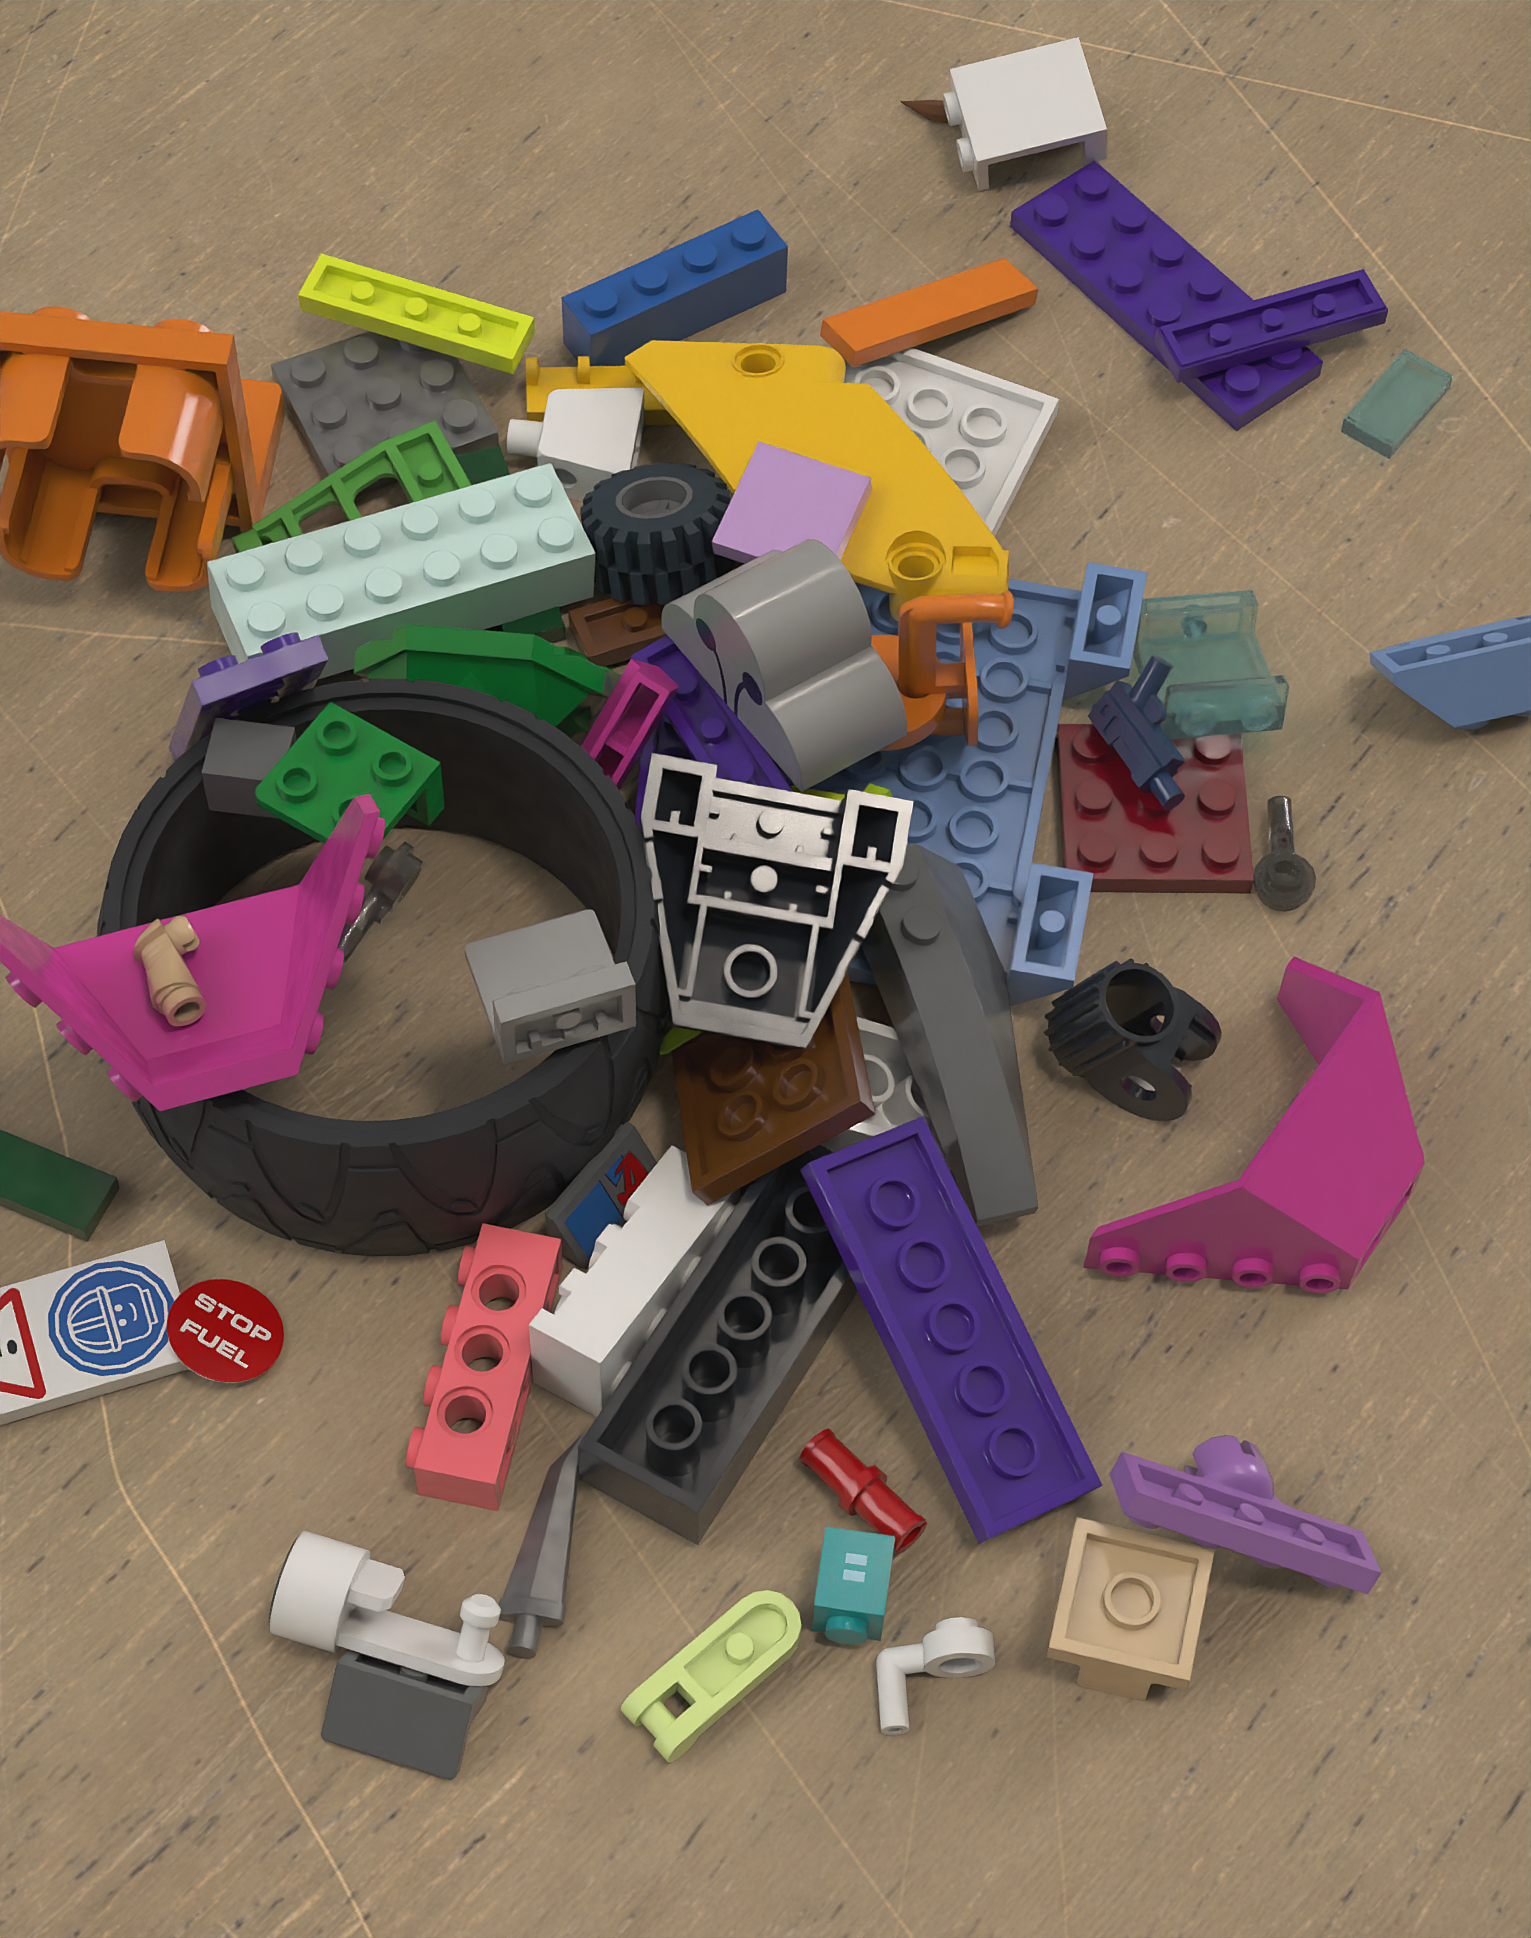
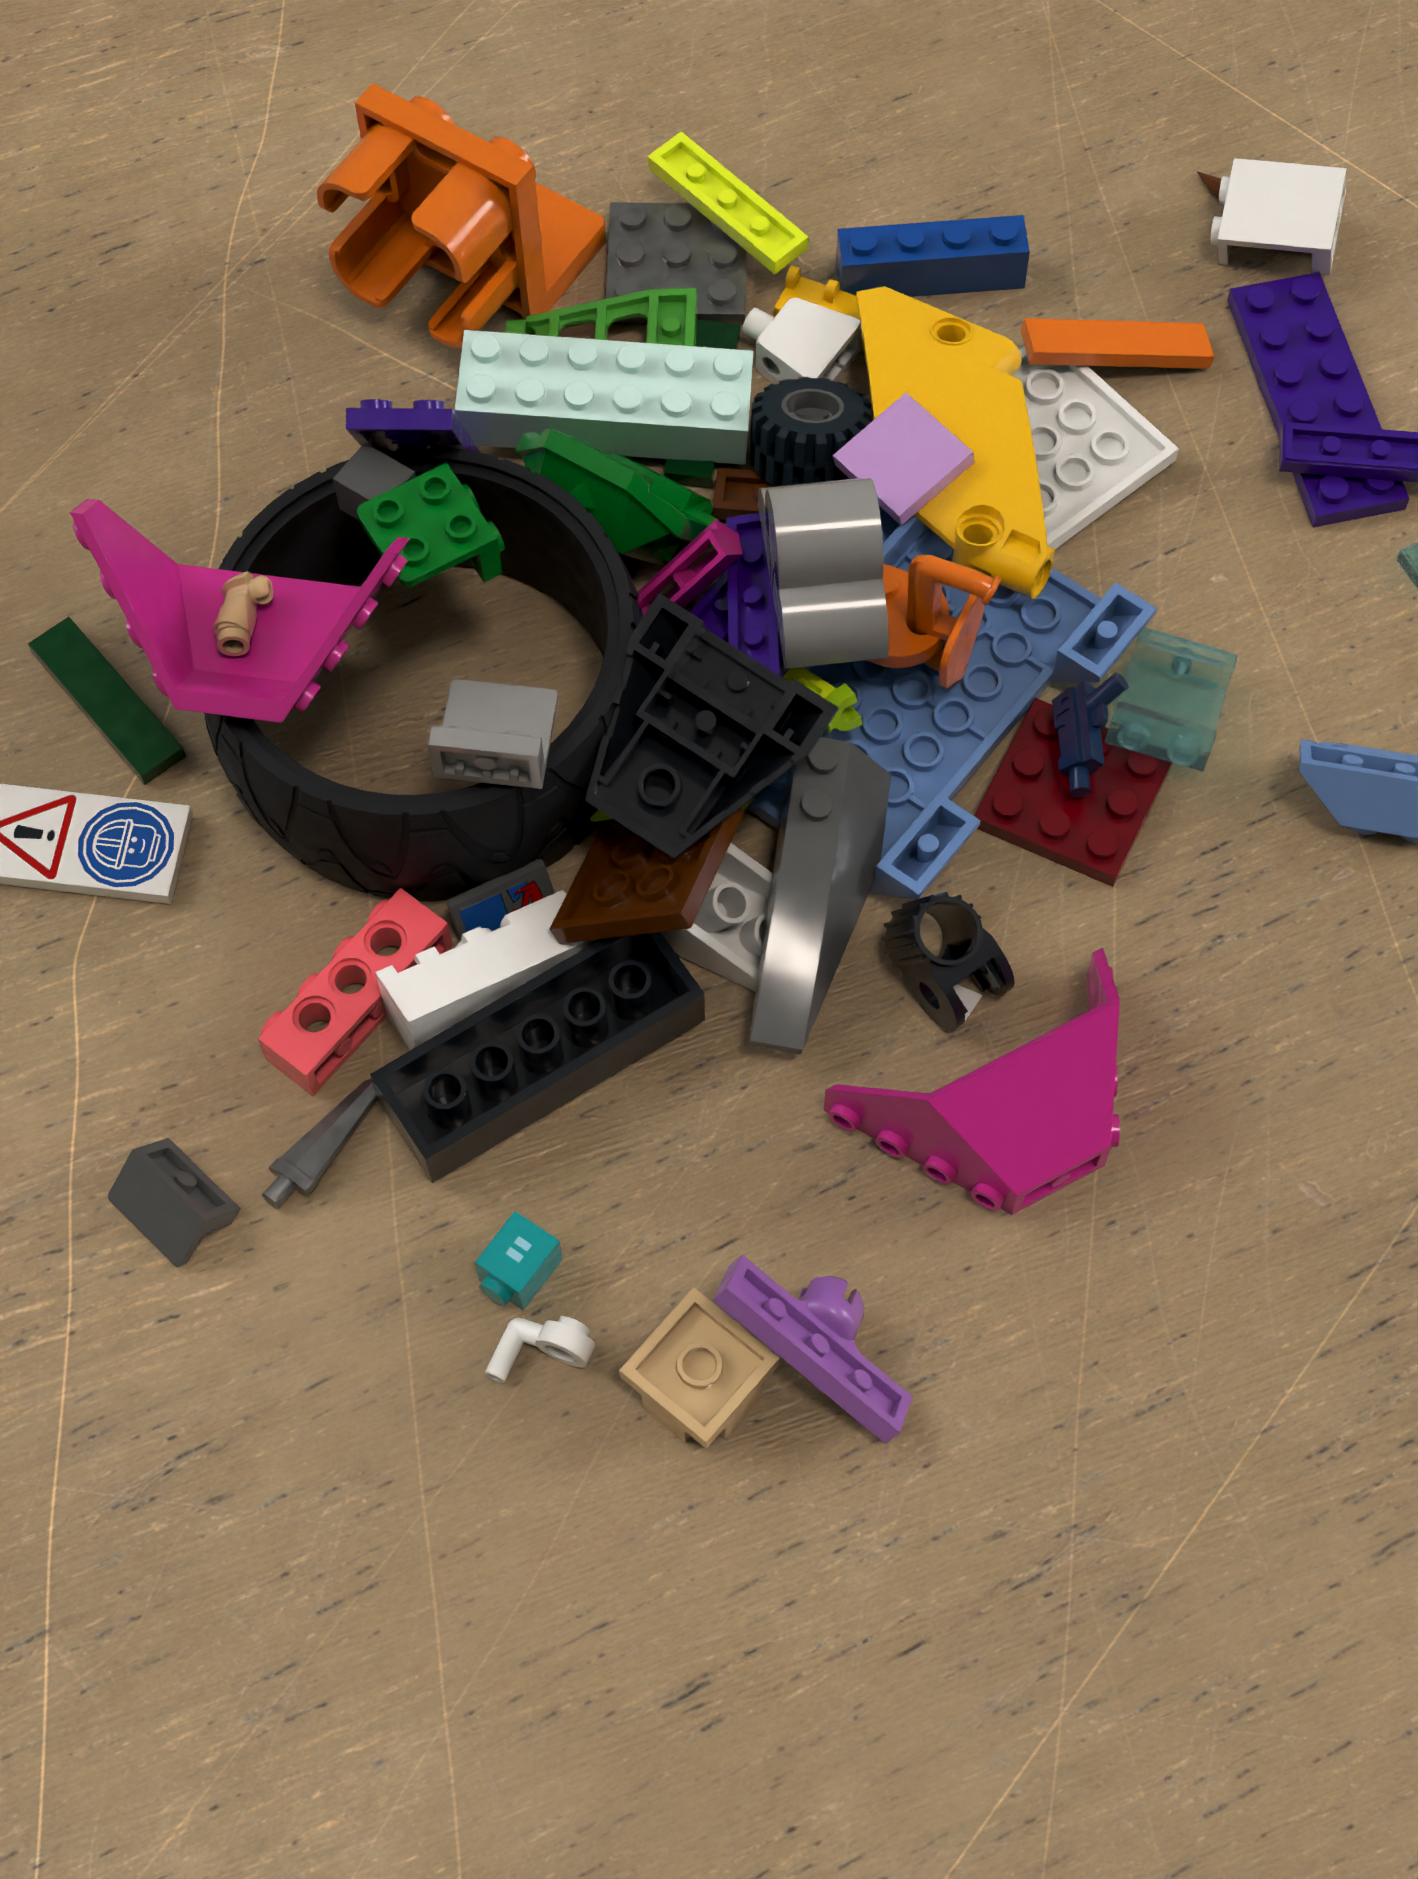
camera: 30 degrees right, 5 degrees up
(225, 1330) = (197, 887): red sticker -> none
(340, 1598) = (160, 1108): white piece -> none
(392, 878) = (429, 610): clear smoke plate -> none
(716, 1670) = (392, 1277): yellowish green plate -> none
(862, 1490) = (566, 1198): red pin -> none
(951, 1329) = (681, 1109): dark purple plate -> none
(1283, 877) = (1142, 885): clear smoke plate -> none

